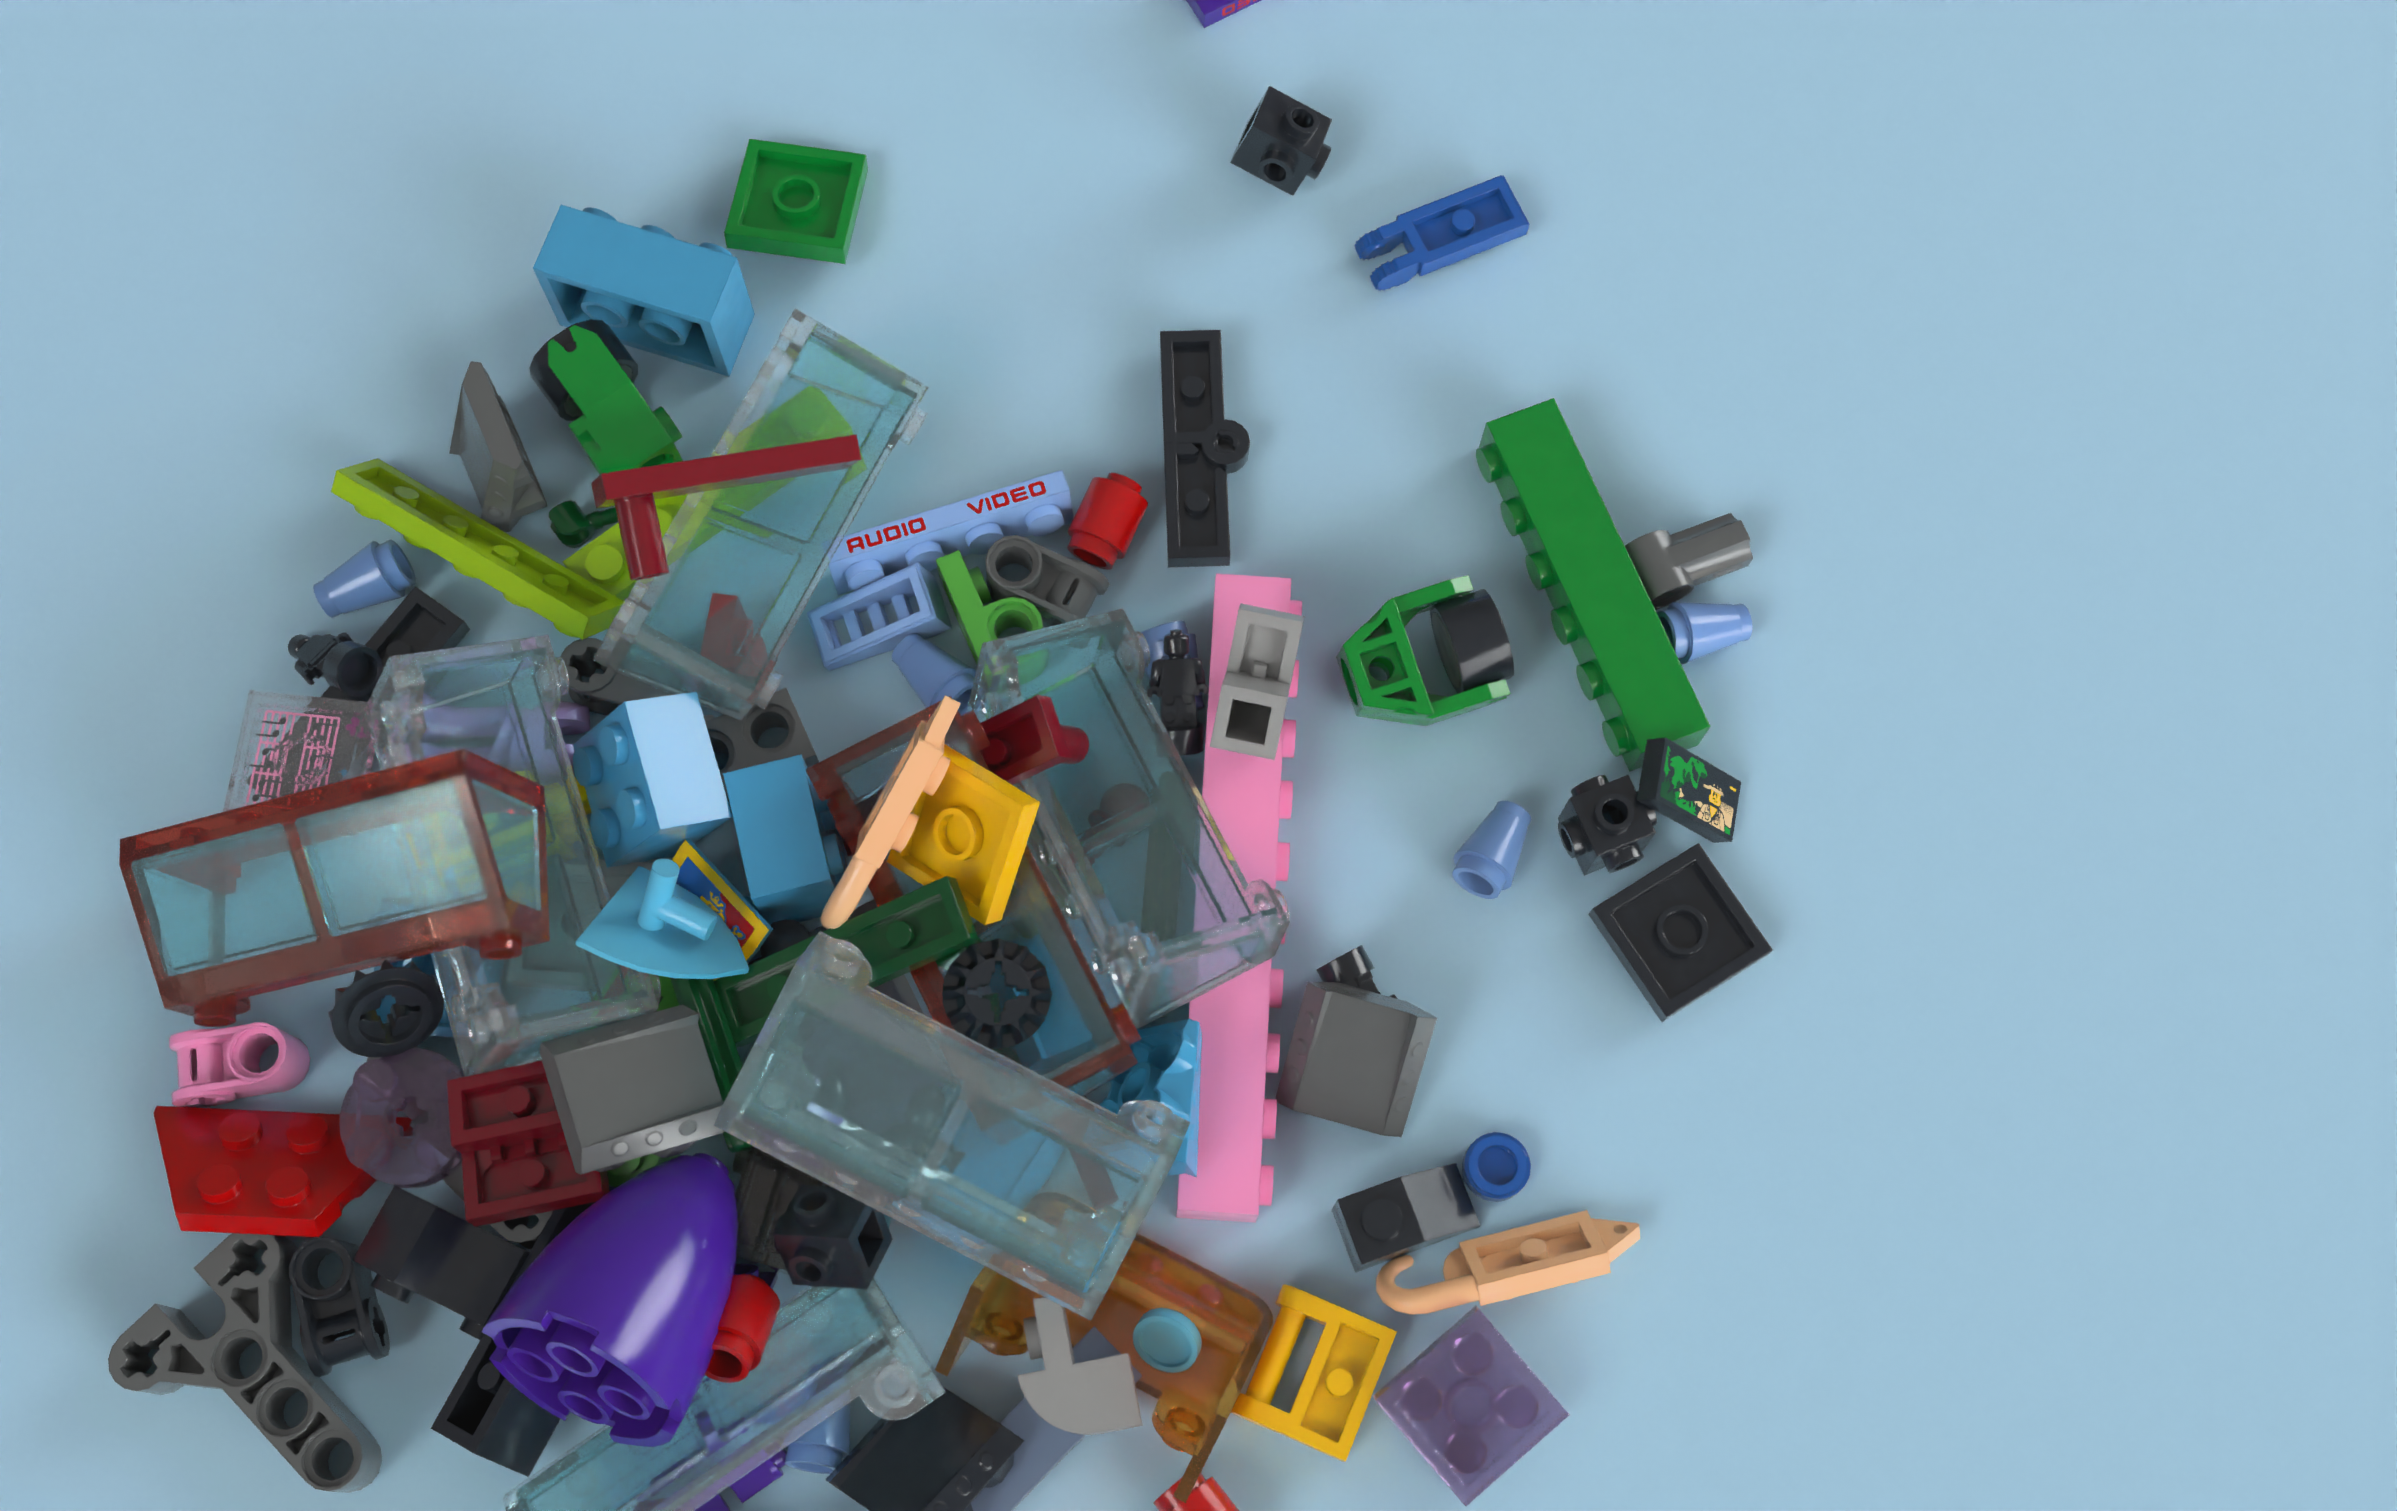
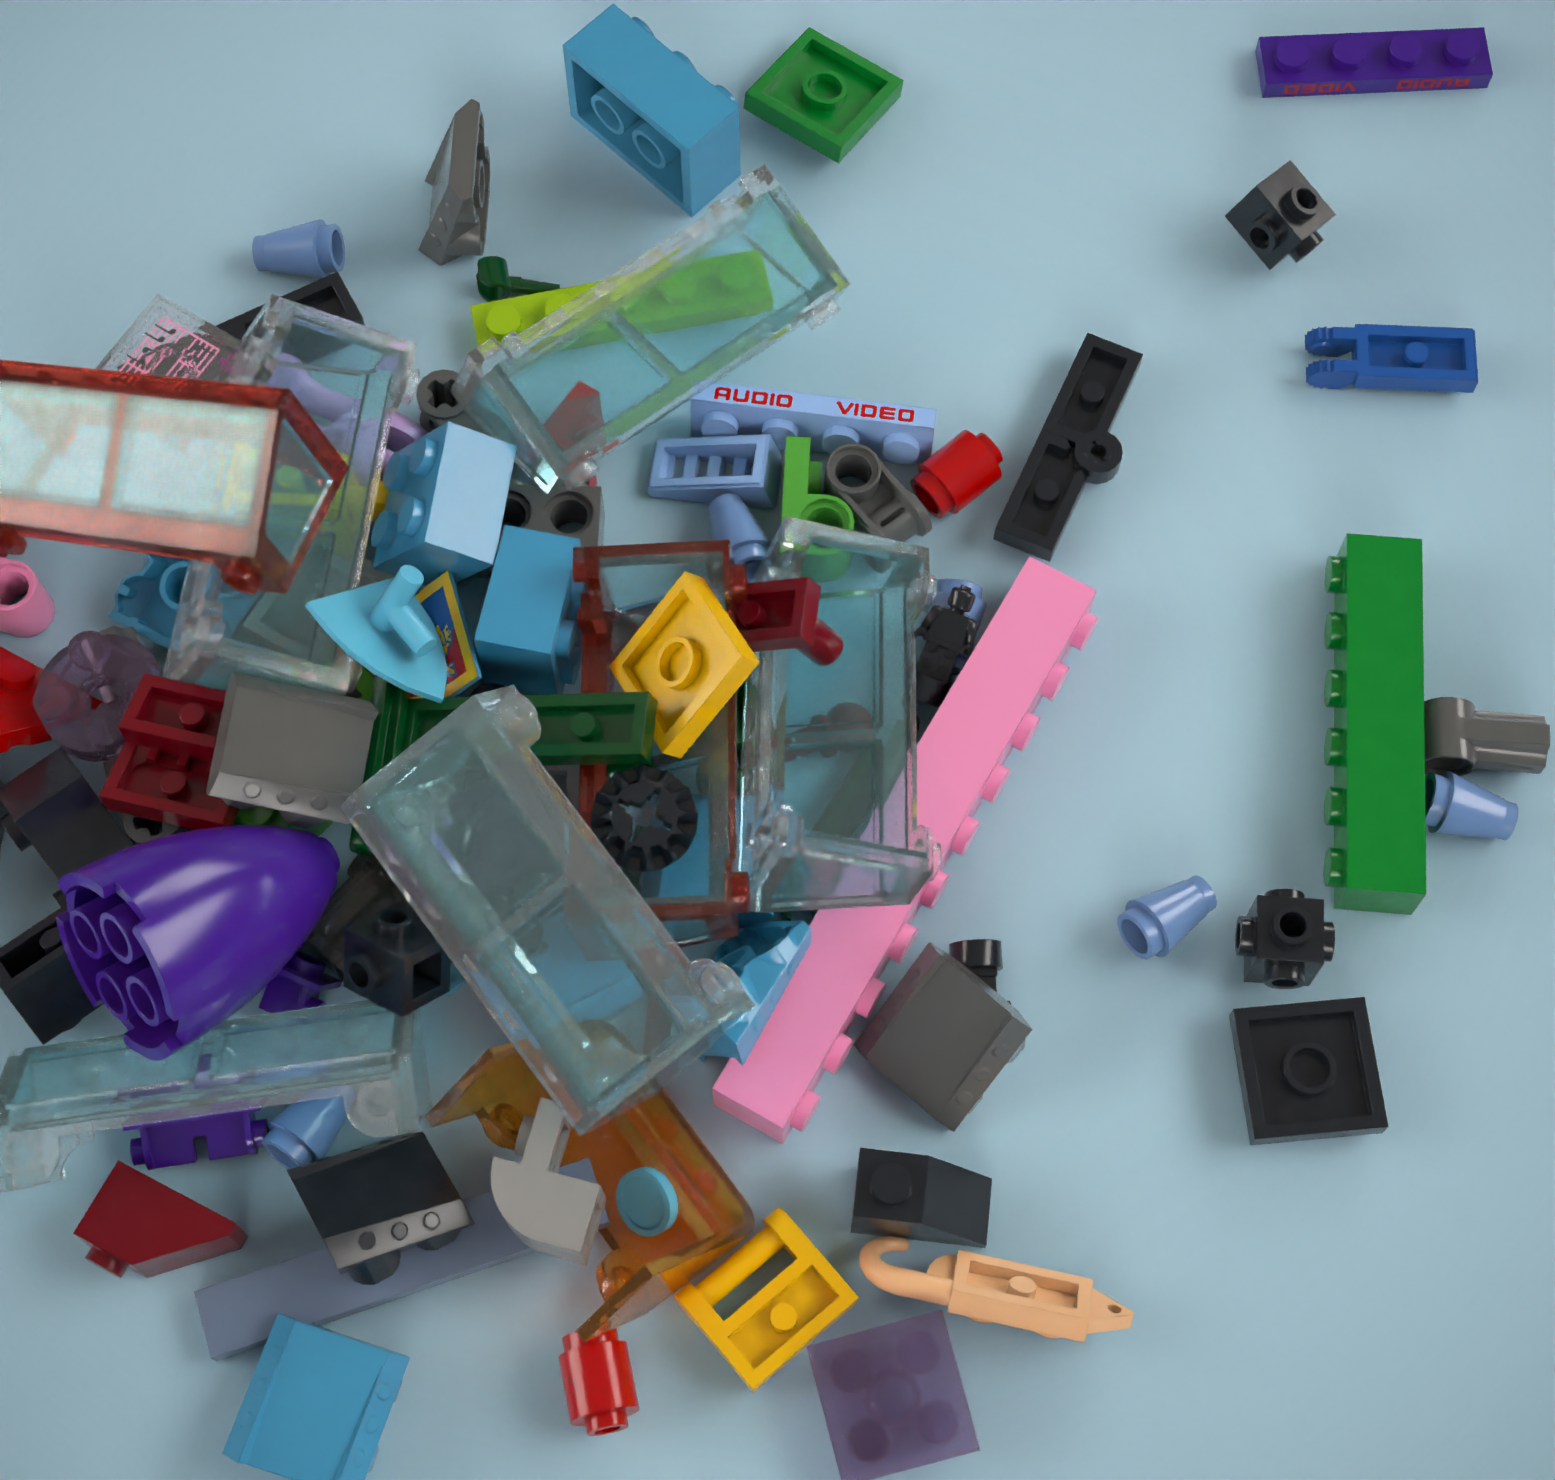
camera: 30 degrees right, 5 degrees down
(338, 659) = (236, 299): black piece -> none
(410, 1020) = (145, 612): black gear -> none
(477, 548) = (400, 256): lime plate -> none
(591, 382) = (565, 167): green piece -> none
(636, 489) = (554, 254): dark red piece -> none
(743, 1329) = (279, 998): red brick -> none
(891, 818) = (623, 622): light nougat plate -> none
(1257, 681) = (1017, 661): light grey brick -> none
(1468, 641) = (1234, 719): green piece -> none
(1496, 1167) = (1027, 1200): blue tile -> none
(1689, 790) = (1378, 944): tile -> none

